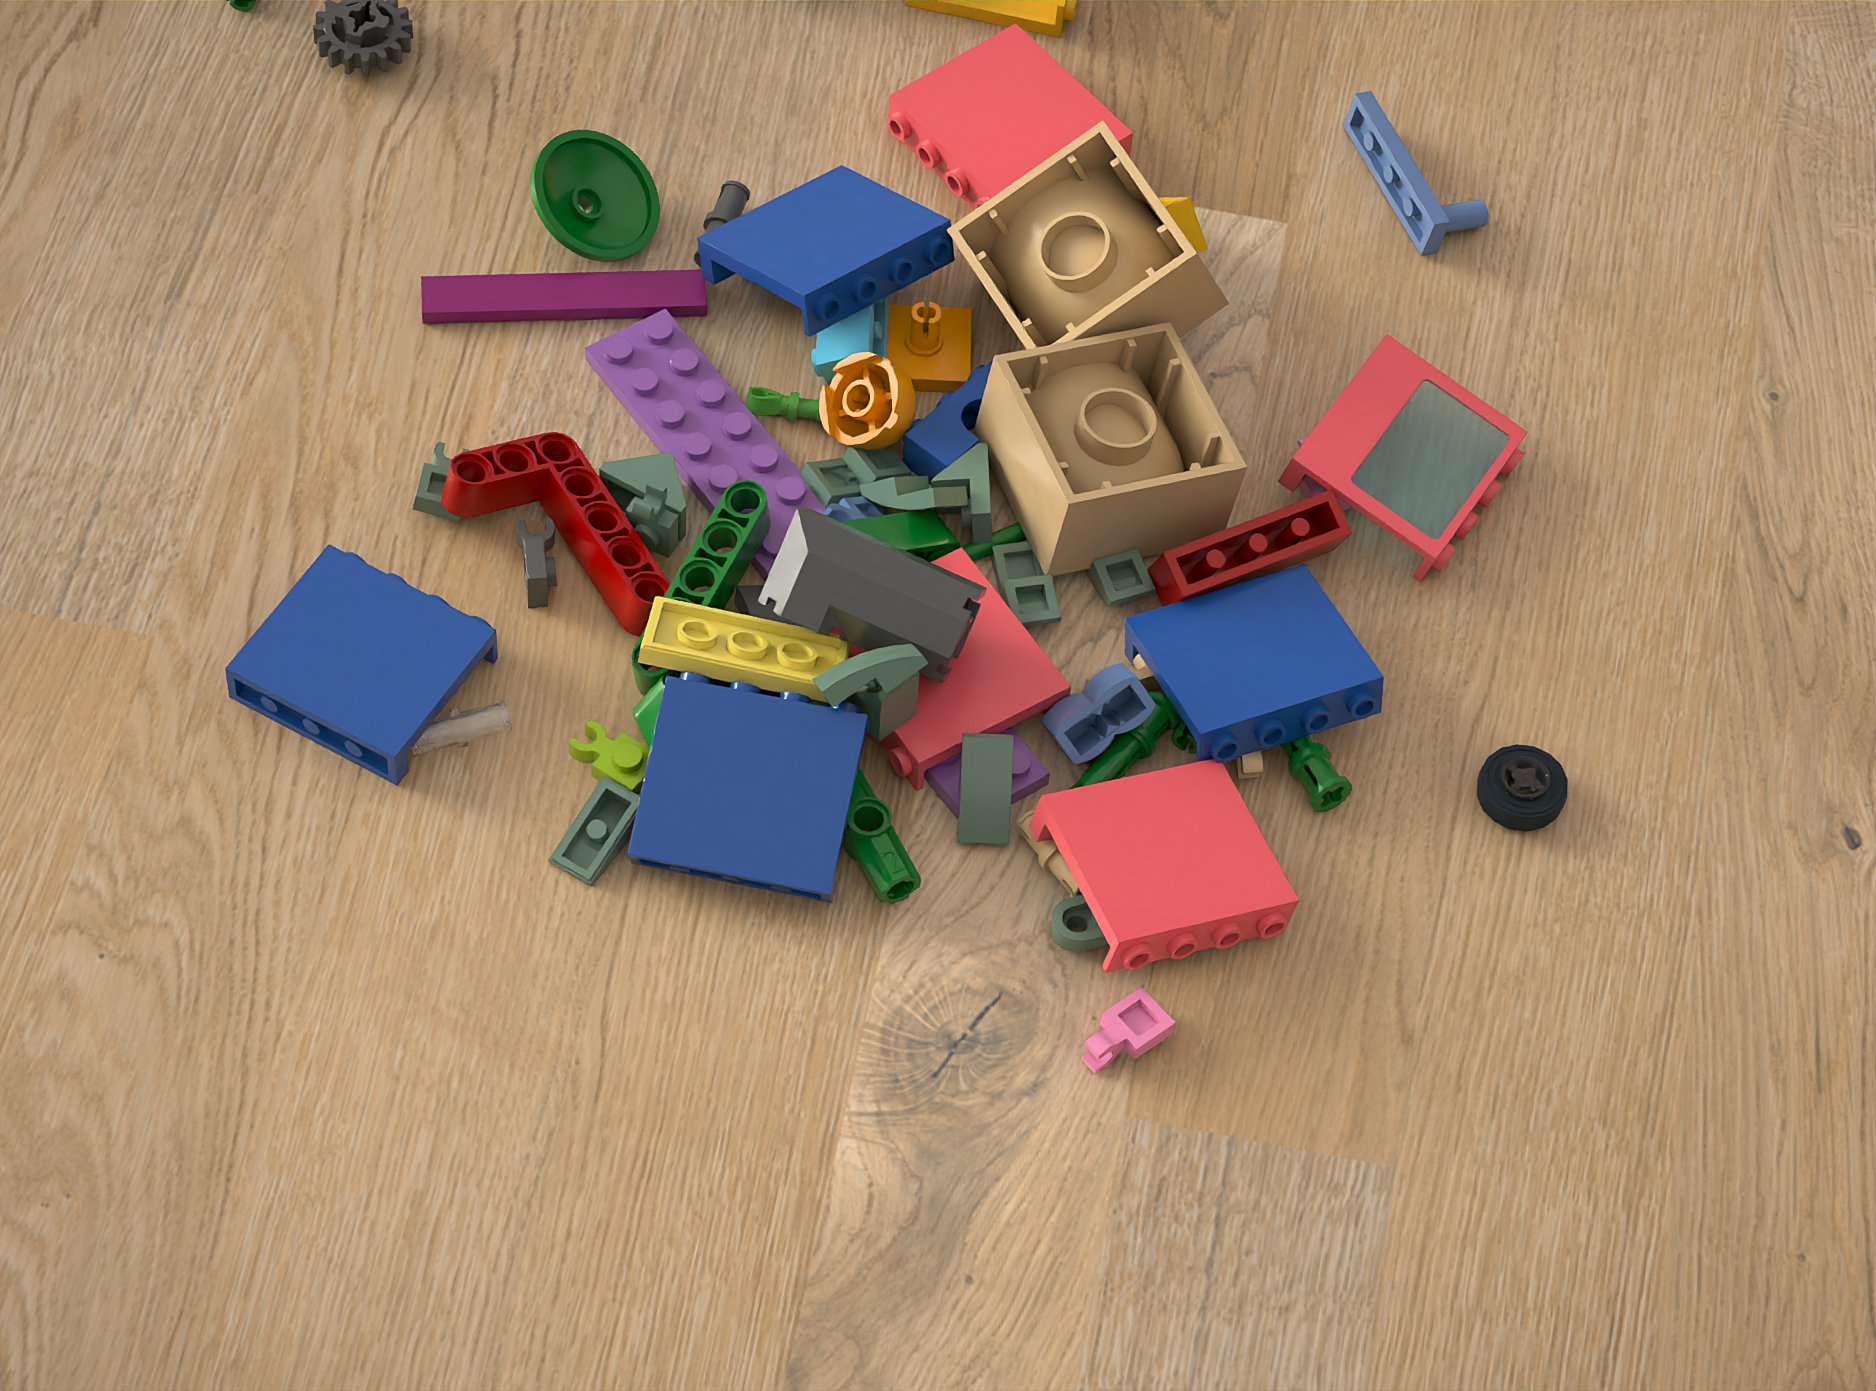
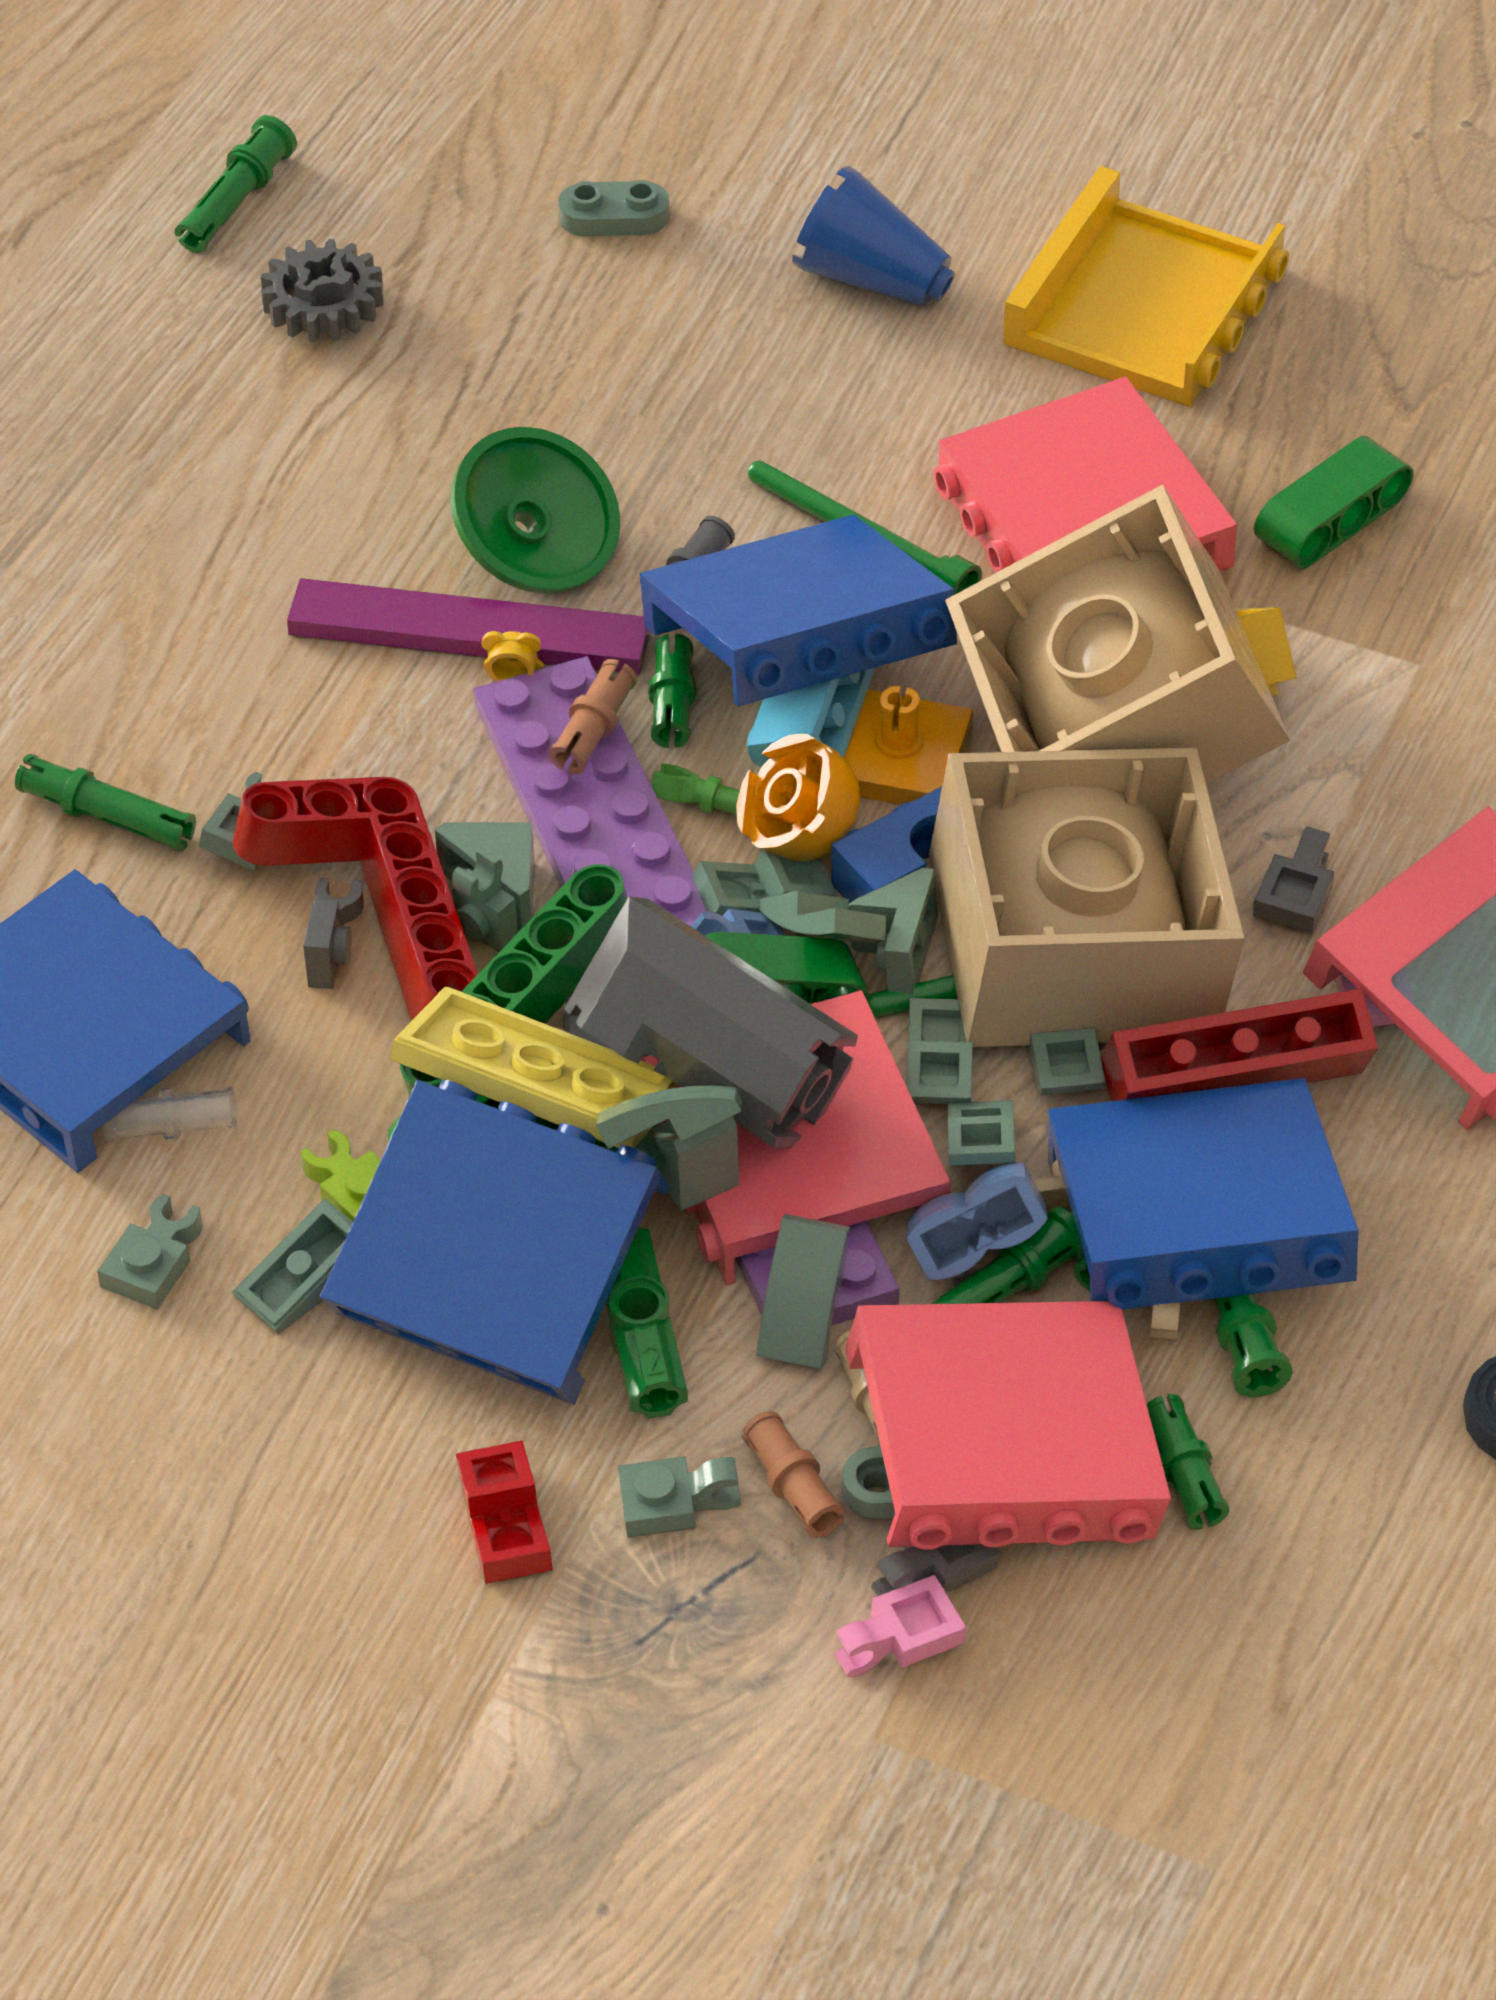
camera: 20 degrees right, 5 degrees down
(306, 479) = (83, 794): none -> green pin
(478, 844) = (151, 1260): none -> sand green plate
(608, 316) = (511, 654): none -> yellow plate
(692, 359) = (593, 716): none -> nougat pin
(738, 326) = (672, 690): none -> green pin
(807, 994) = (504, 1512): none -> red slope
(924, 962) = (663, 1495): none -> sand green plate
(927, 197) = (953, 570): none -> green piece
(1014, 928) = (793, 1474): none -> nougat pin
(1079, 644) = (981, 1133): none -> sand green slope
(1149, 977) = (950, 1564): none -> dark grey plate
(1193, 102) = (1333, 501): none -> green beam
(1250, 413) = (1297, 887): none -> dark grey plate
(1297, 871) = (1186, 1463): none -> green pin

